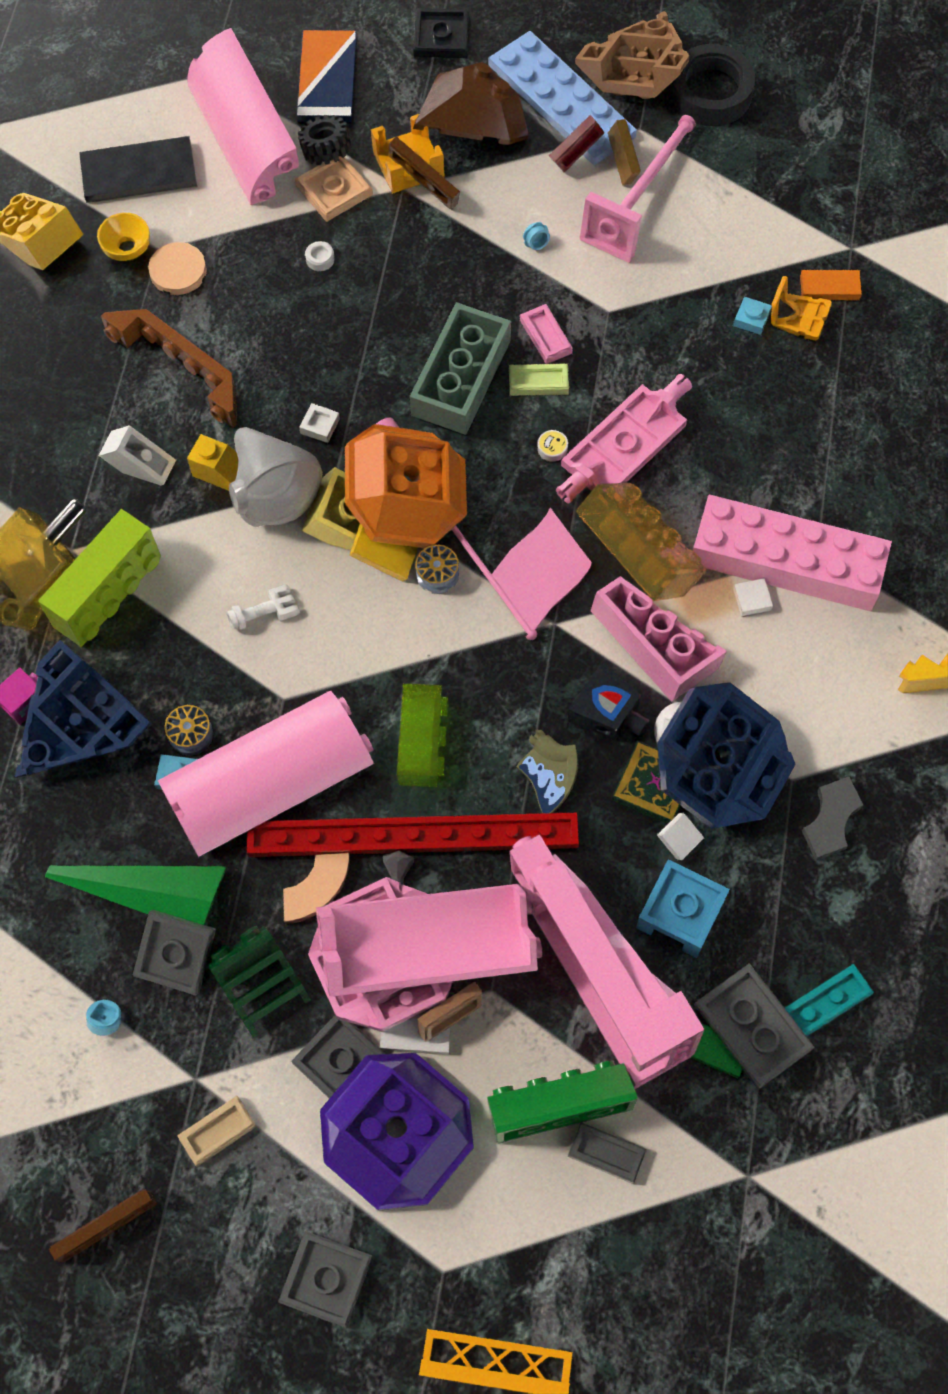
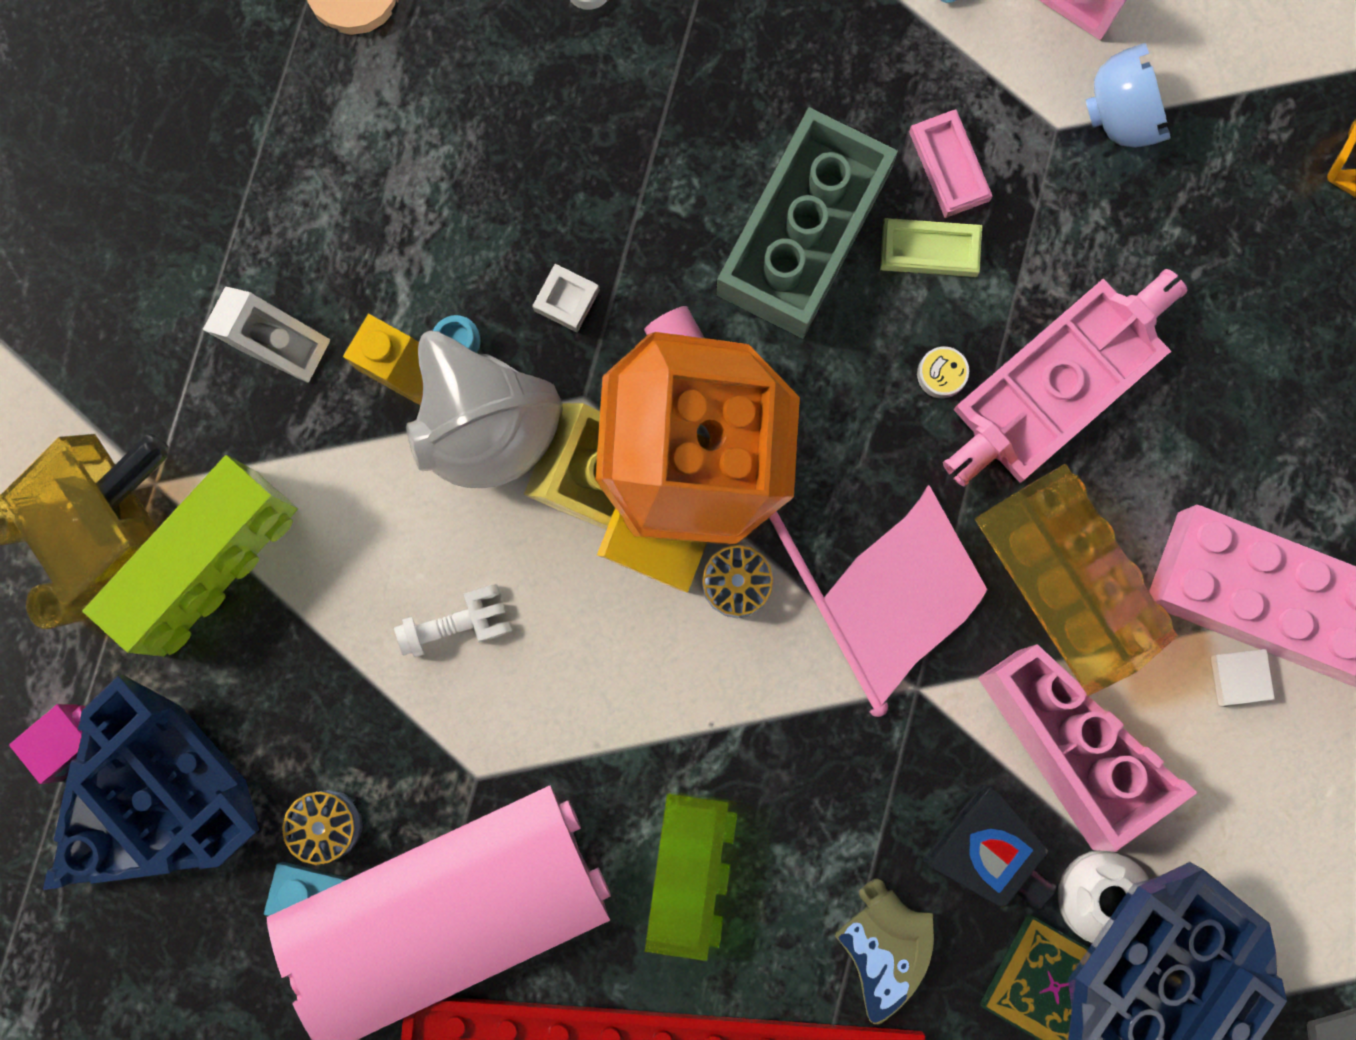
camera: 10 degrees right, 15 degrees up
(131, 324) = (270, 89): dark orange slope -> none
(646, 288) = (1128, 100): none -> light blue cylinder
(752, 315) = (1297, 160): medium azure plate -> none

